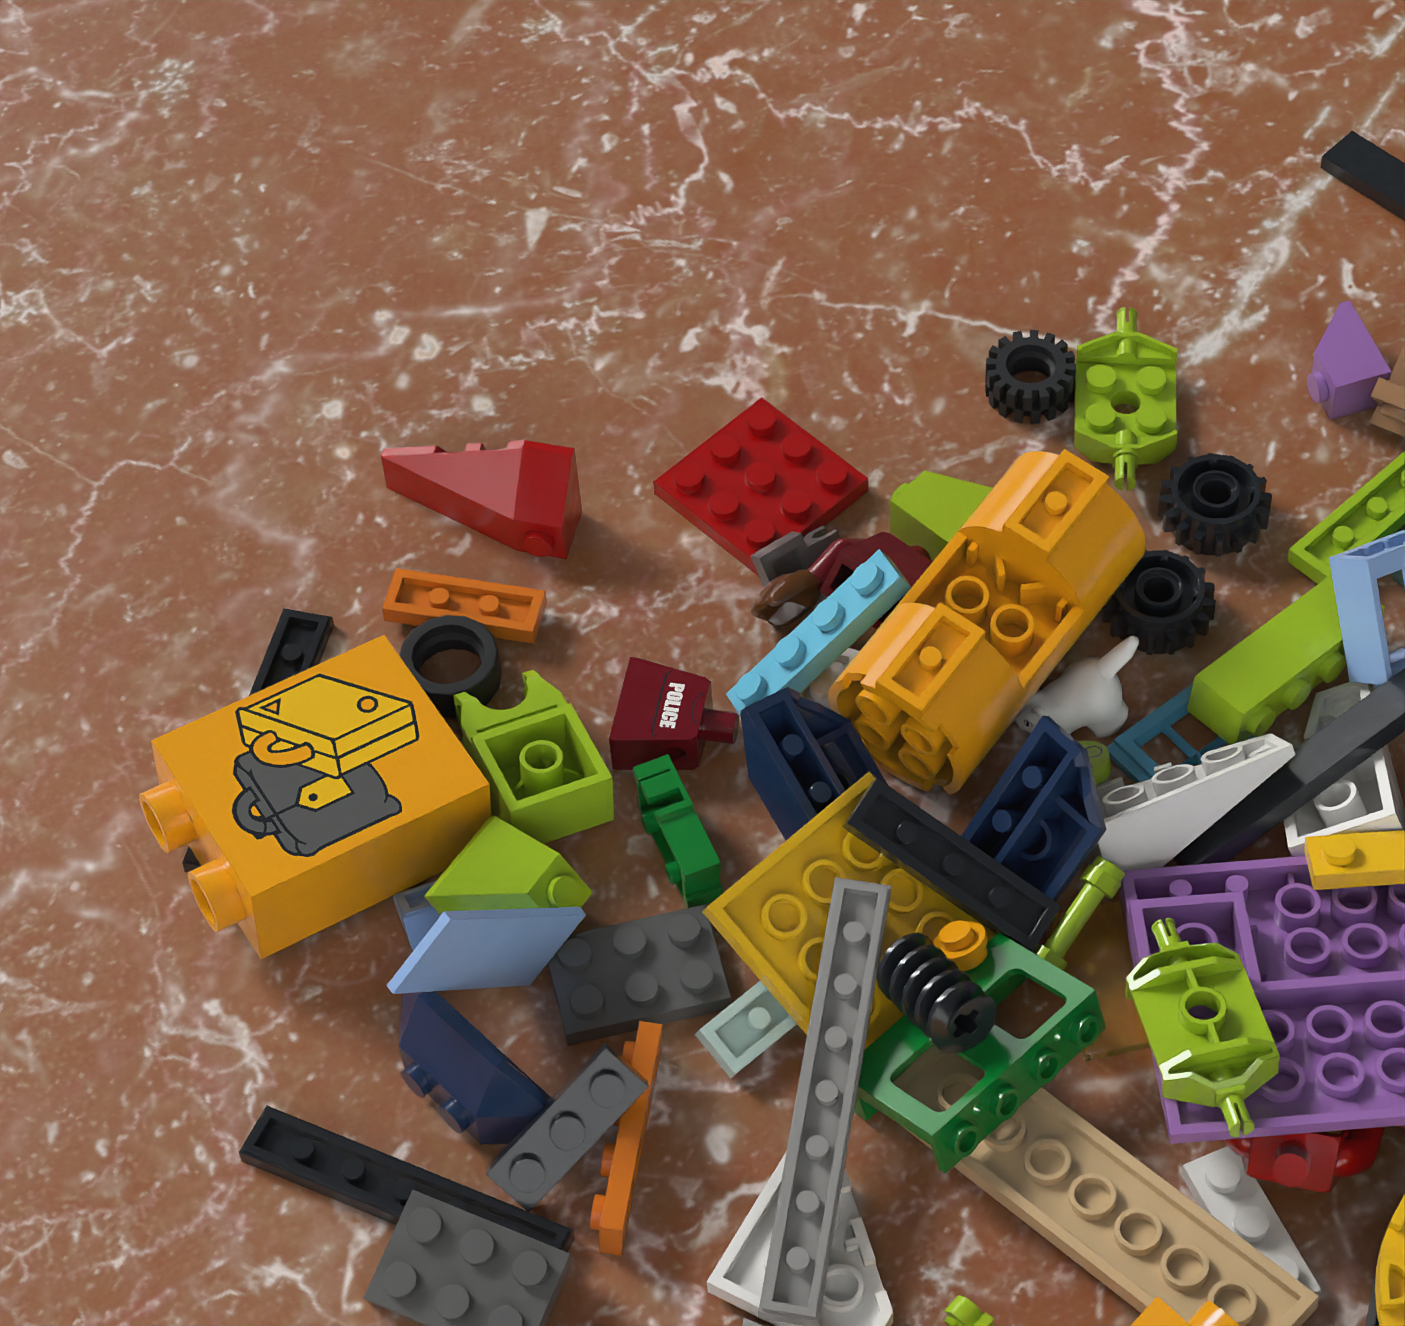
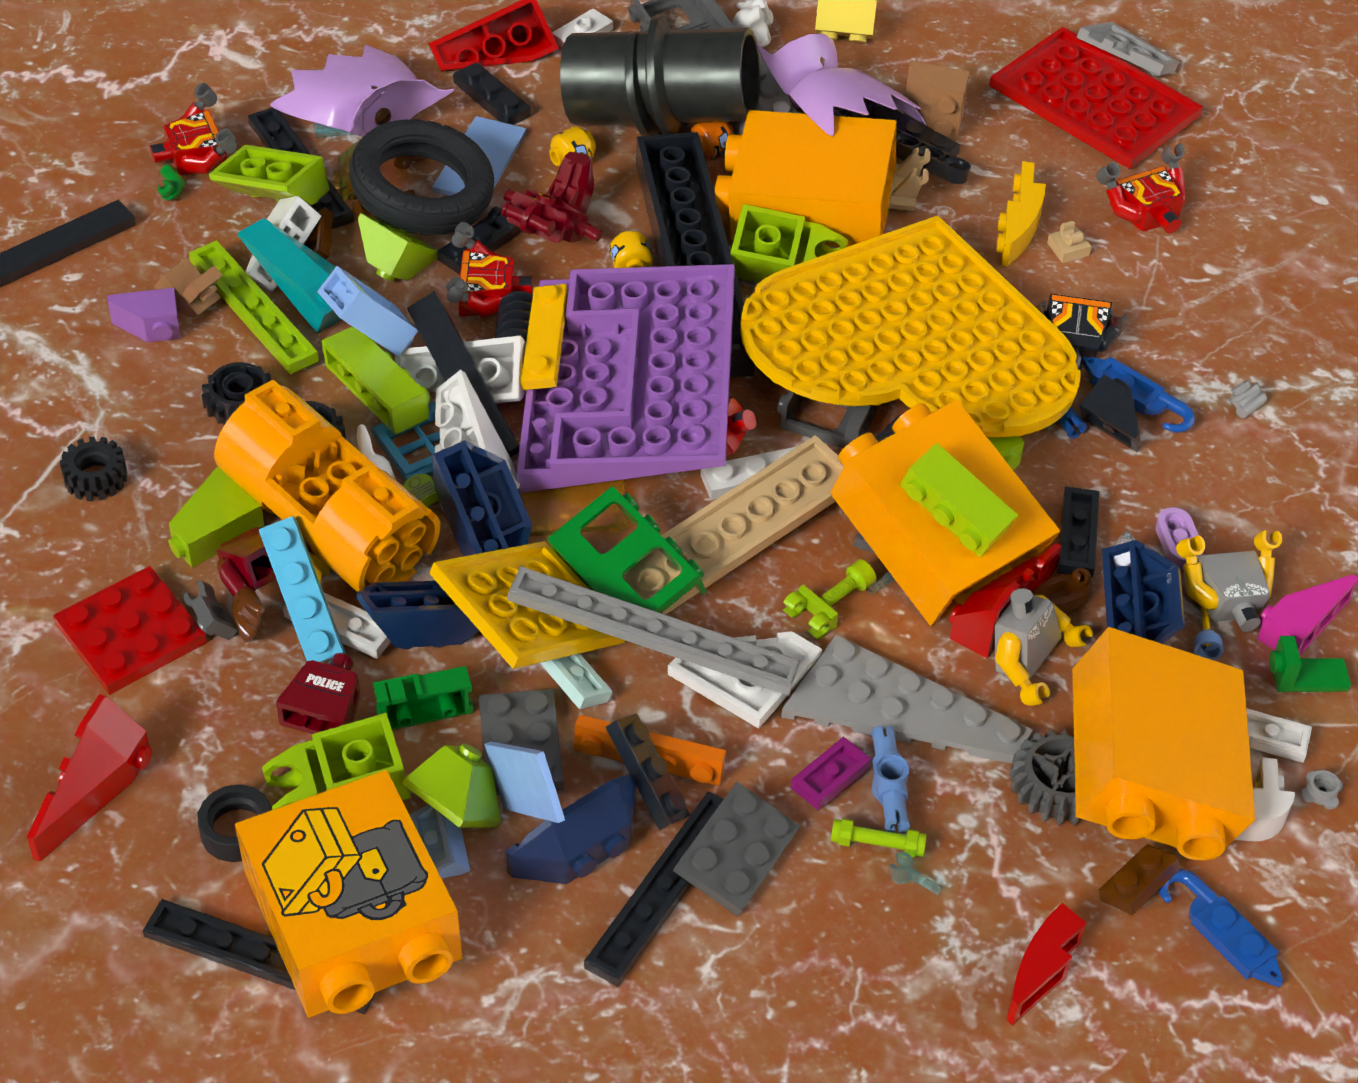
camera: 90 degrees left, 5 degrees down
(502, 608) = (177, 815): orange plate -> none
(935, 994) = (600, 558): black piece -> none
(951, 865) = (503, 542): black plate -> none
(963, 943) = (555, 553): light orange plate -> none
(1100, 881) = (525, 484): lime bar -> none
(1131, 371) = (113, 416): lime plate -> none
(1211, 1059) = (682, 430): lime plate -> none

